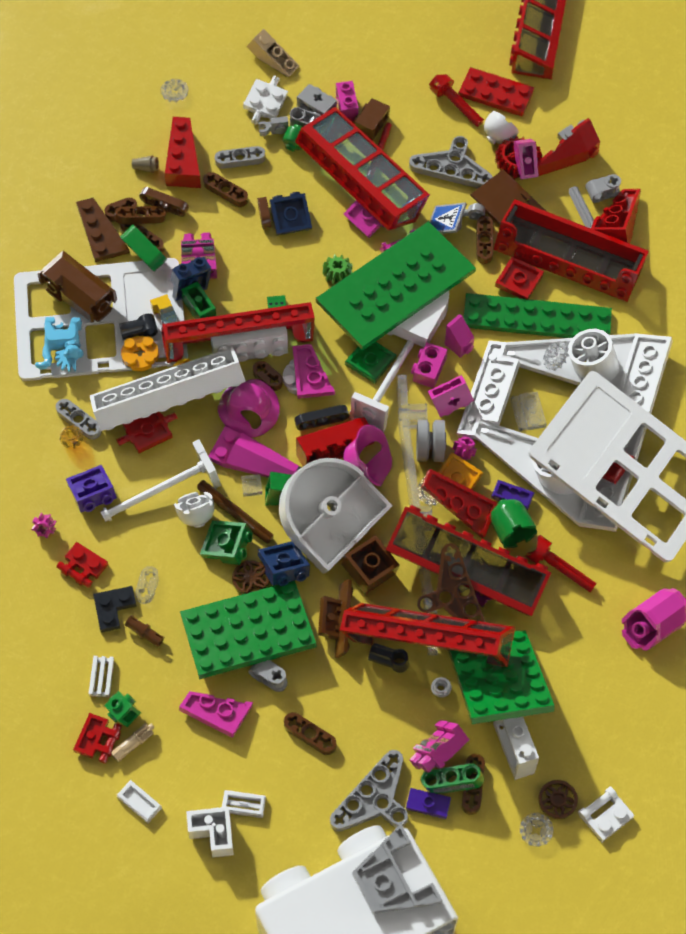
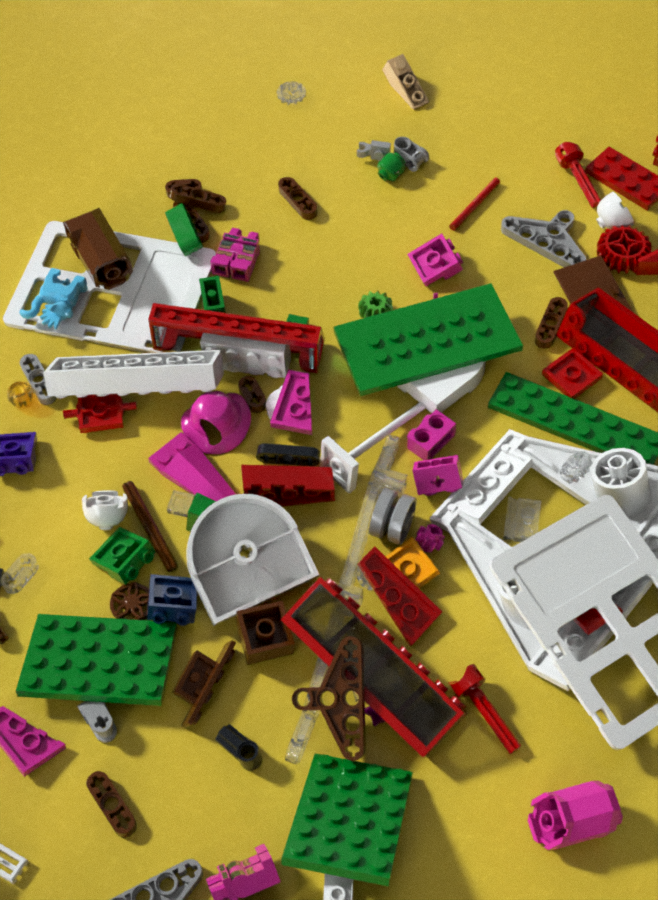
camera: 25 degrees right, 5 degrees down
(101, 234) = (152, 204): reddish brown wing -> none
(136, 344) = (126, 322): light orange plate -> none
(143, 326) = (139, 305): black piece -> none
(146, 163) = (231, 153): dark tan cone -> none
(165, 309) = (175, 292): leg -> none
(169, 203) = (230, 192): reddish brown beam -> none
(181, 160) = (266, 154): red wedge -> none
(189, 273) = (215, 264): dark blue plate -> none
(204, 465) = (137, 465): white tile -> none
(226, 154) = (341, 169): light grey beam -> none
(264, 212) = (325, 230): reddish brown beam -> none
(265, 99) = (378, 123): white plate -> none
(290, 213) = (351, 238): dark blue plate -> none
(315, 100) = (430, 138): light grey brick -> none
(347, 99) = (460, 146): dark pink brick -> none
(363, 169) = (445, 215): window -> none
(368, 621) = (290, 733): red window -> none
(371, 361) = (370, 412): green tile -> none
(372, 118) = (480, 169): reddish brown brick -> none
(380, 464) = (330, 526): dark pink piece -> none
(441, 682) = (284, 797): white plate -> none
(447, 217) = (517, 288): piece -> none
(459, 336) = (475, 414): dark pink slope -> none
(473, 212) = (550, 290): light grey plate -> none
(508, 491) = (464, 608): dark purple plate -> none
(512, 523) = (448, 640): green cylinder -> none
(526, 158) = (628, 249): dark pink slope -> none

